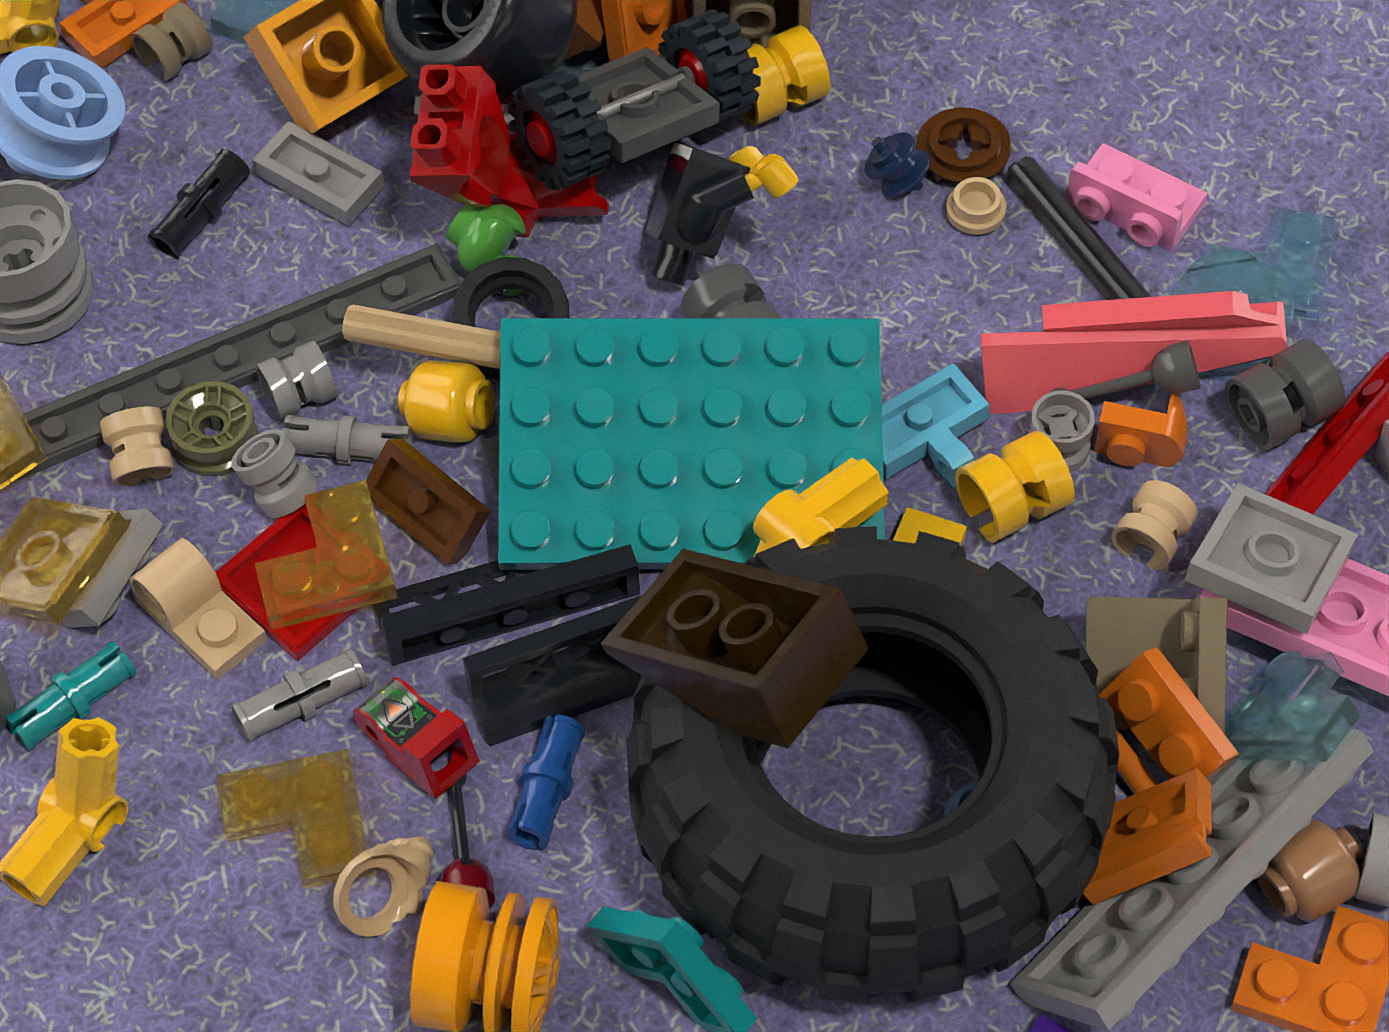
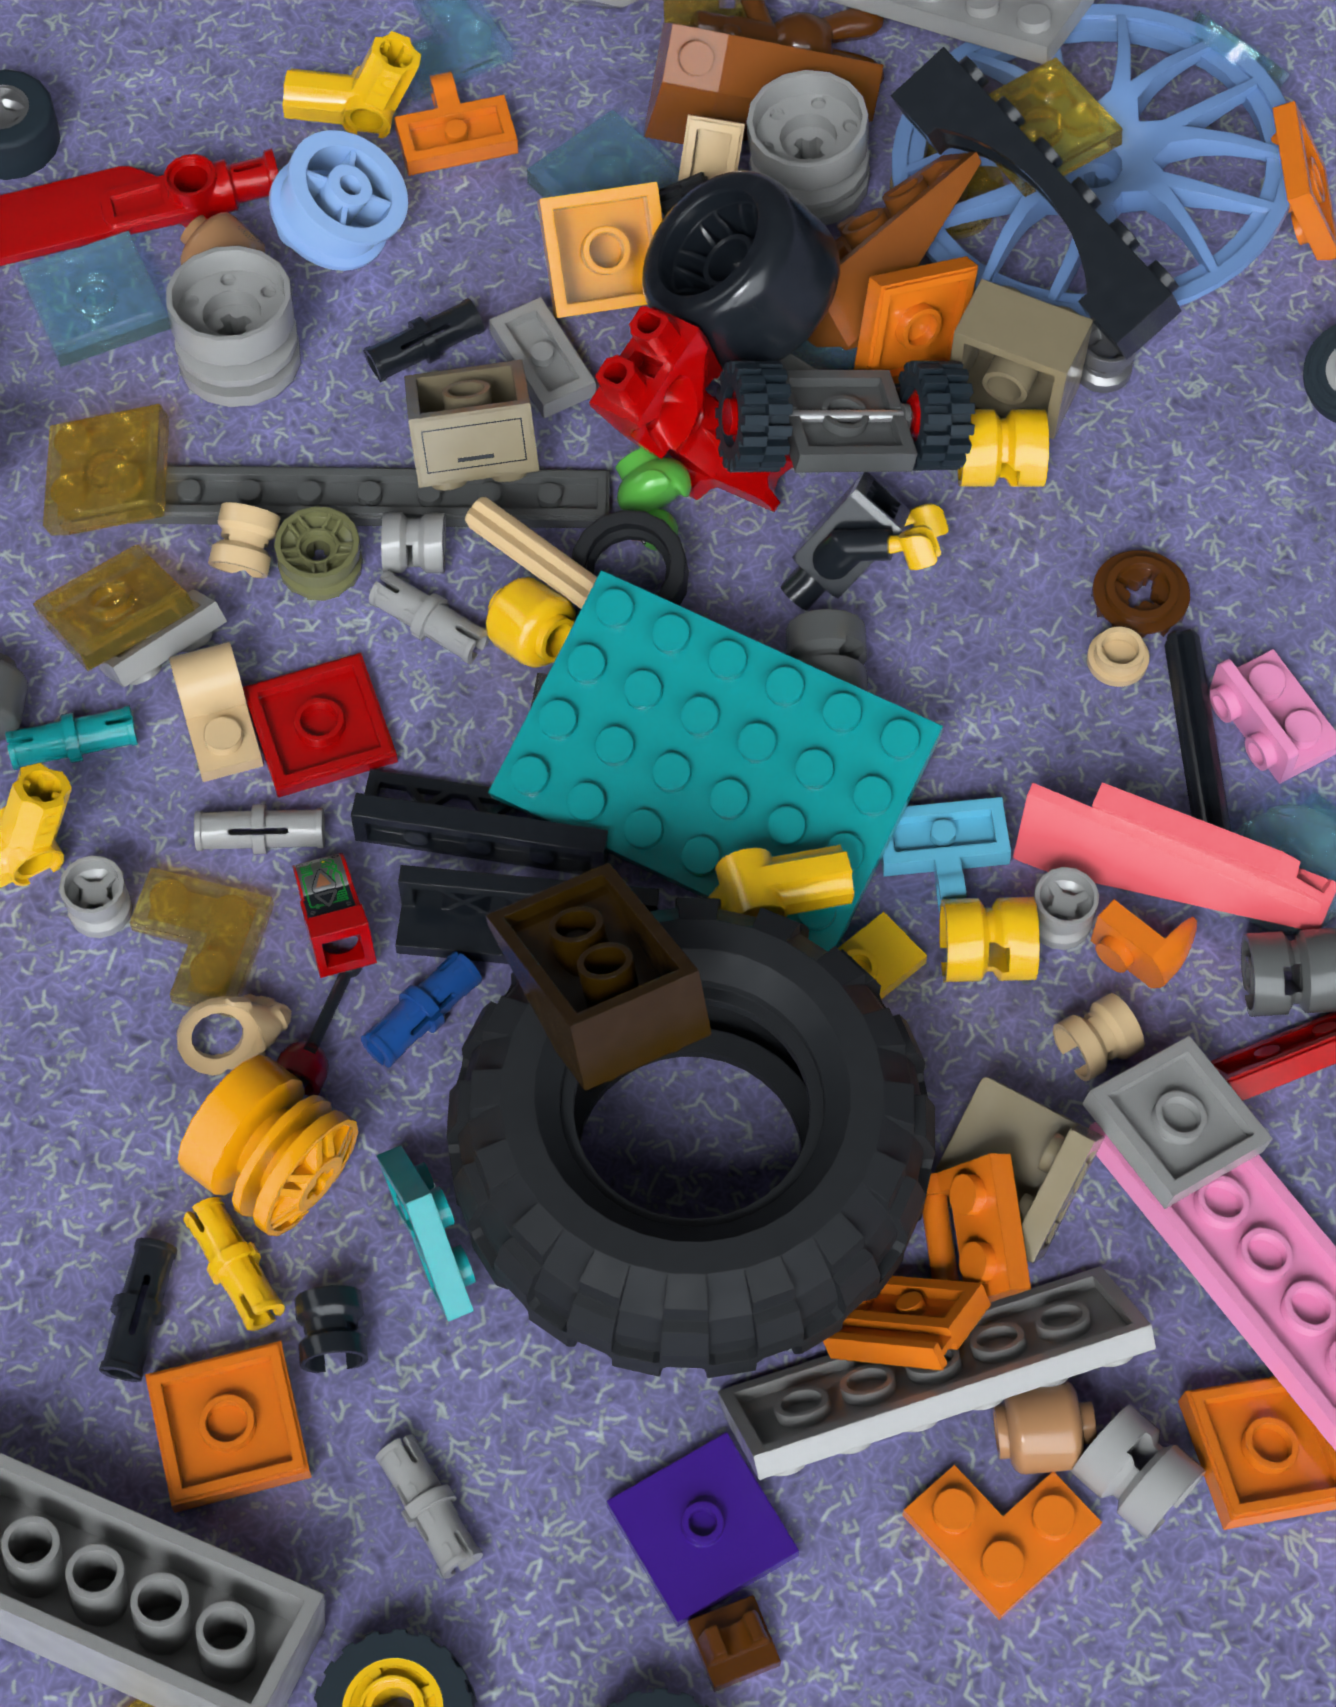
camera: 25 degrees right, 5 degrees up
(172, 40) = (495, 175): dark tan wheel -> none
(176, 811) = (89, 884): none -> light grey wheel
(271, 469) = (344, 618): light grey wheel -> none
(296, 252) = (471, 425): none -> dark tan brick
(341, 573) = (349, 737): clear yellow plate -> none
(426, 501) = (461, 704): reddish brown plate -> none
(897, 164) = (1064, 580): dark blue wheel -> none
(1172, 371) = (1196, 900): dark grey hinge -> none
(1290, 713) = (1105, 1274): clear light blue plate -> none

